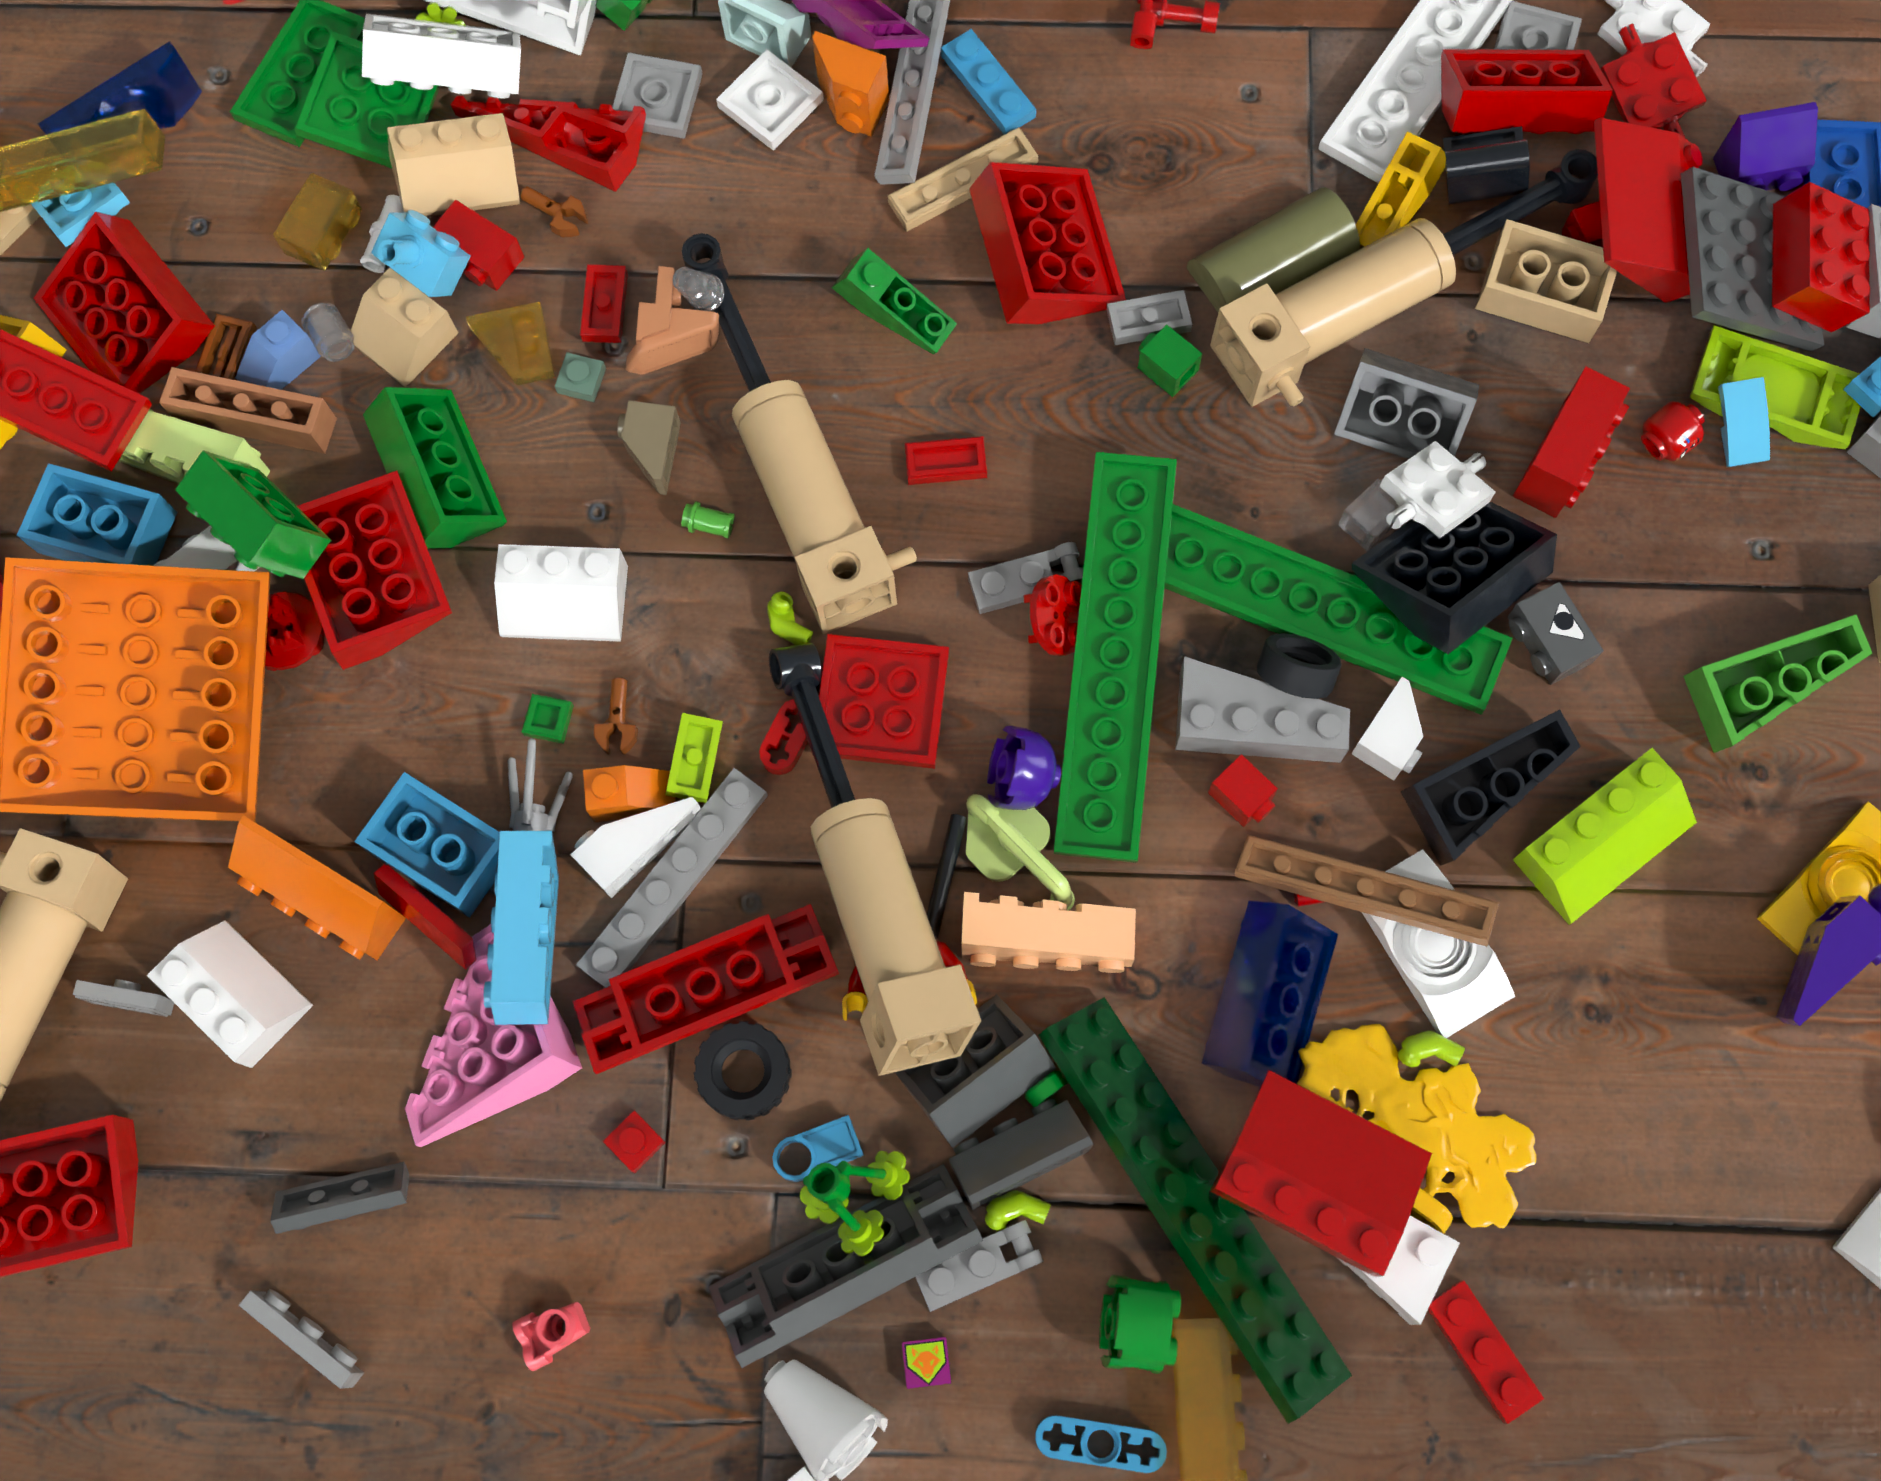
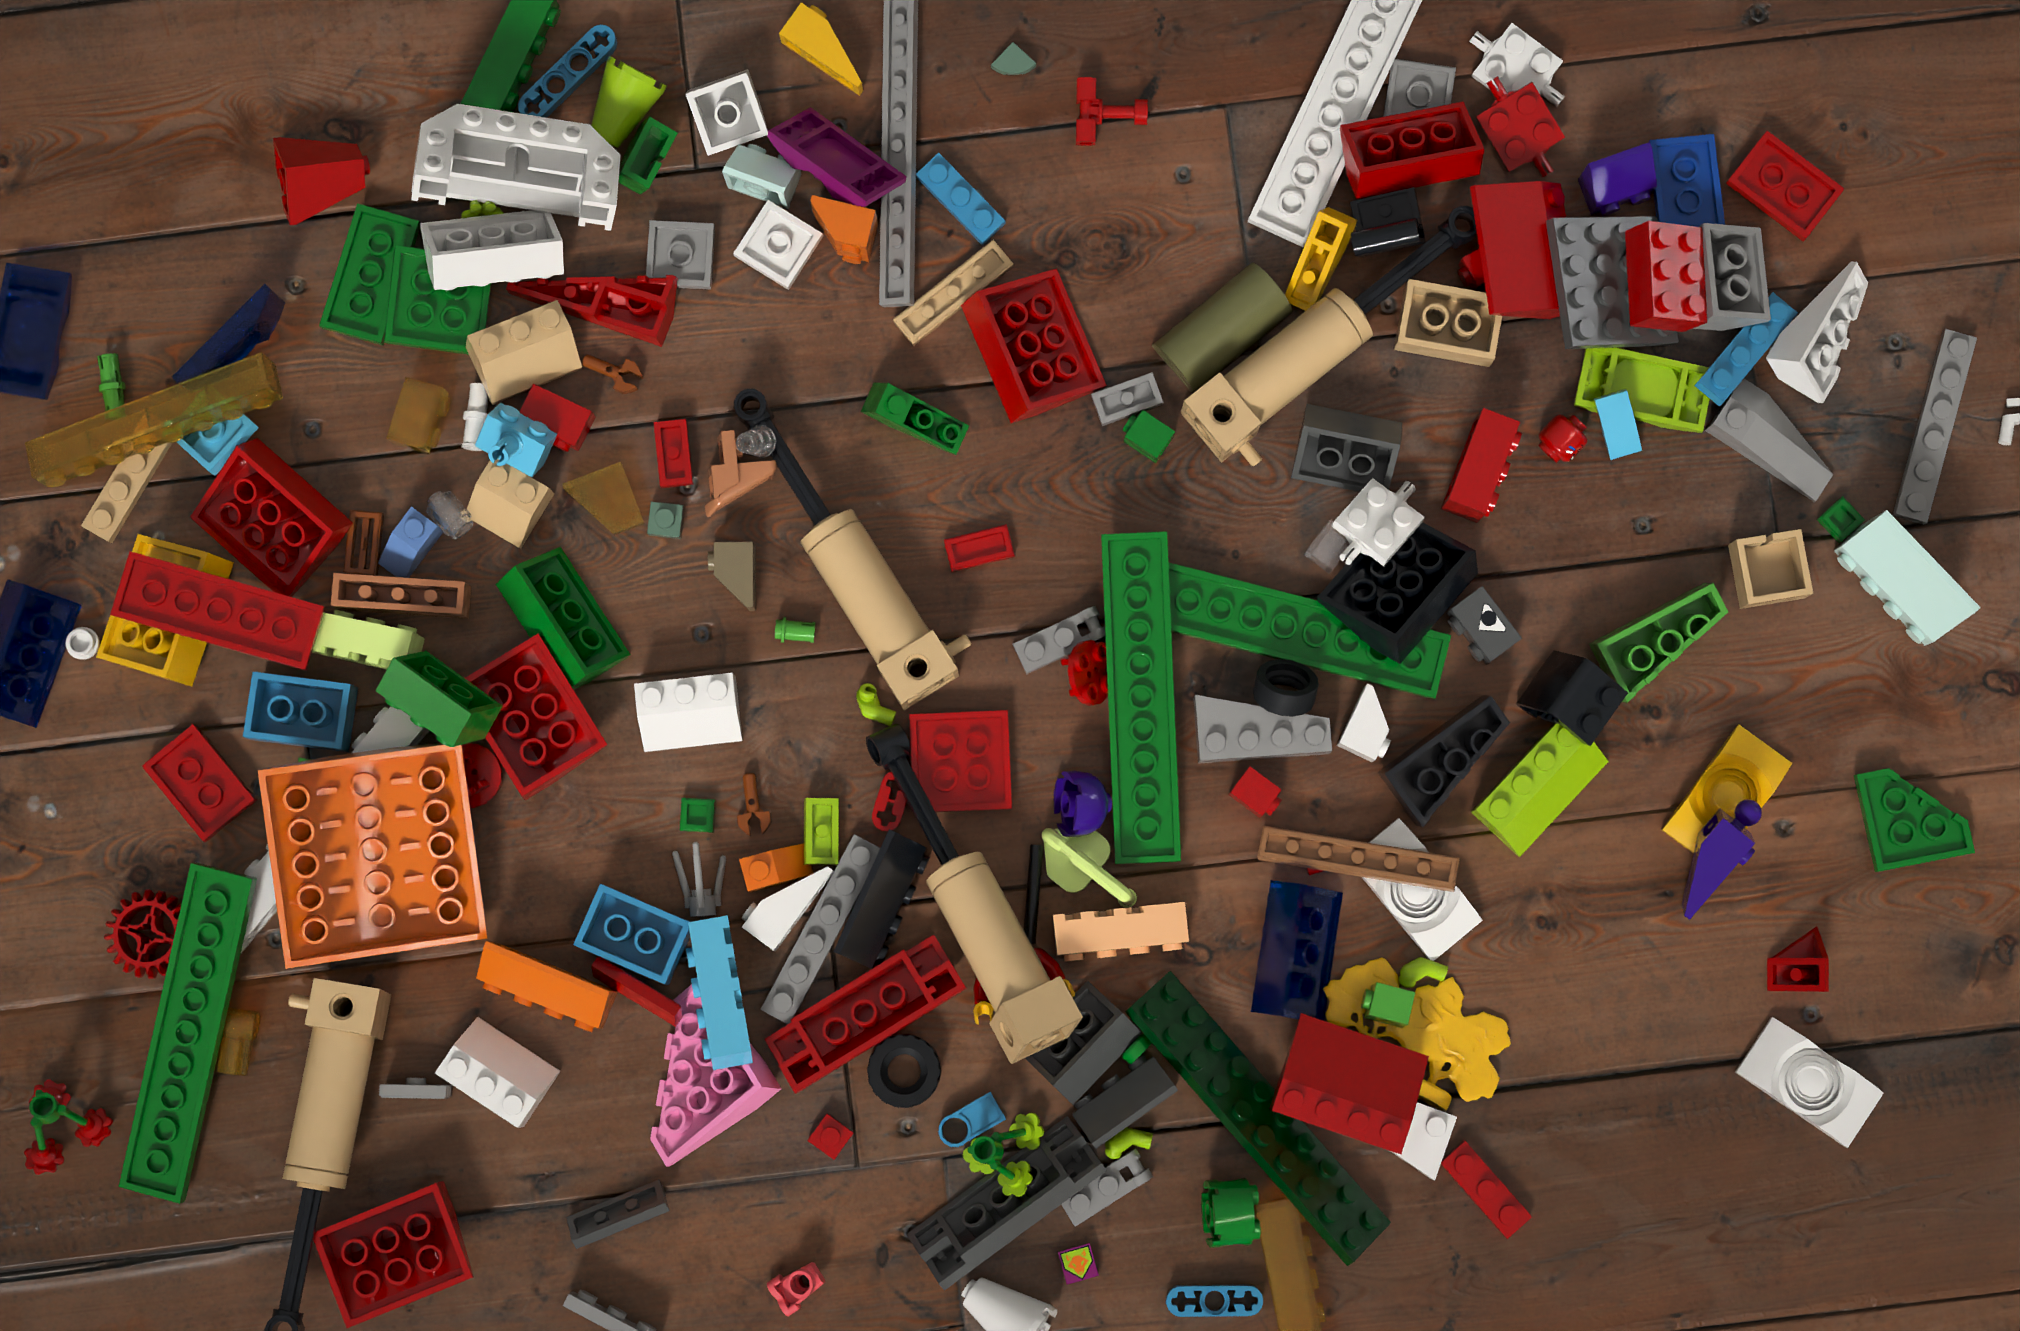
camera: 10 degrees left, 10 degrees up
(751, 848) = (881, 900): none -> black slope
(1383, 1081) = (1388, 1004): none -> bright green brick
(1667, 721) = (1573, 694): none -> black piece

